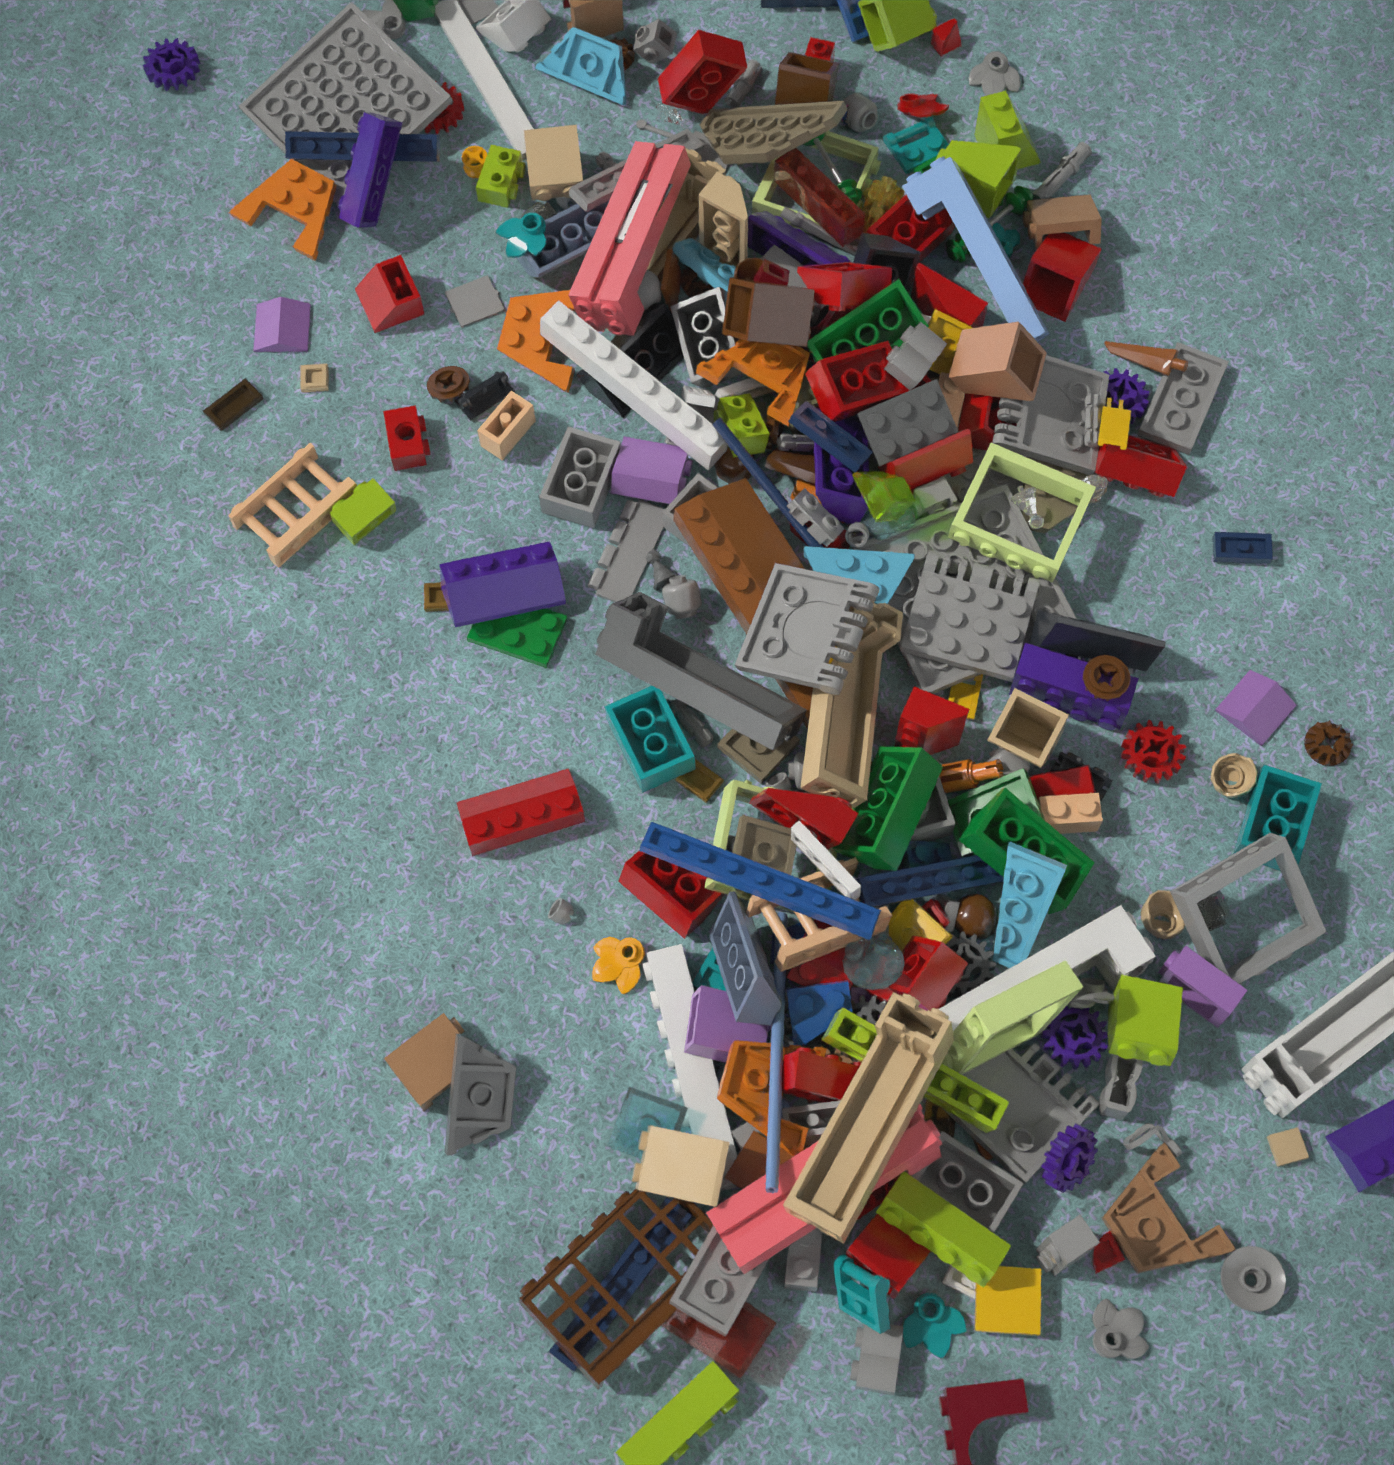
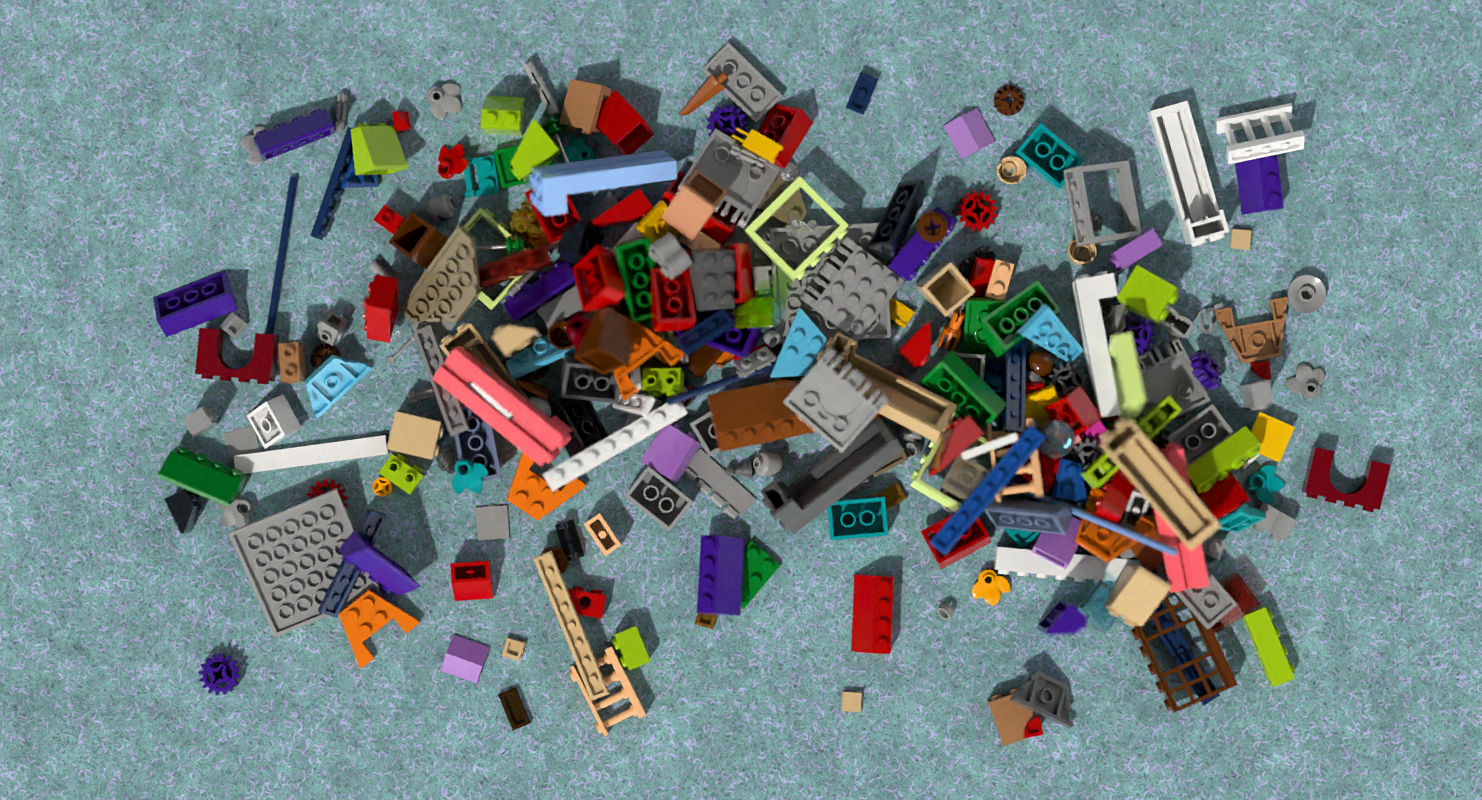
camera: 75 degrees left, 20 degrees up
(367, 424) = (571, 625): none -> tan tile
(382, 827) = (851, 701): none -> tan tile
(426, 1091) = (1033, 727): none -> red tile
(607, 1065) = (1063, 620): none -> dark purple slope

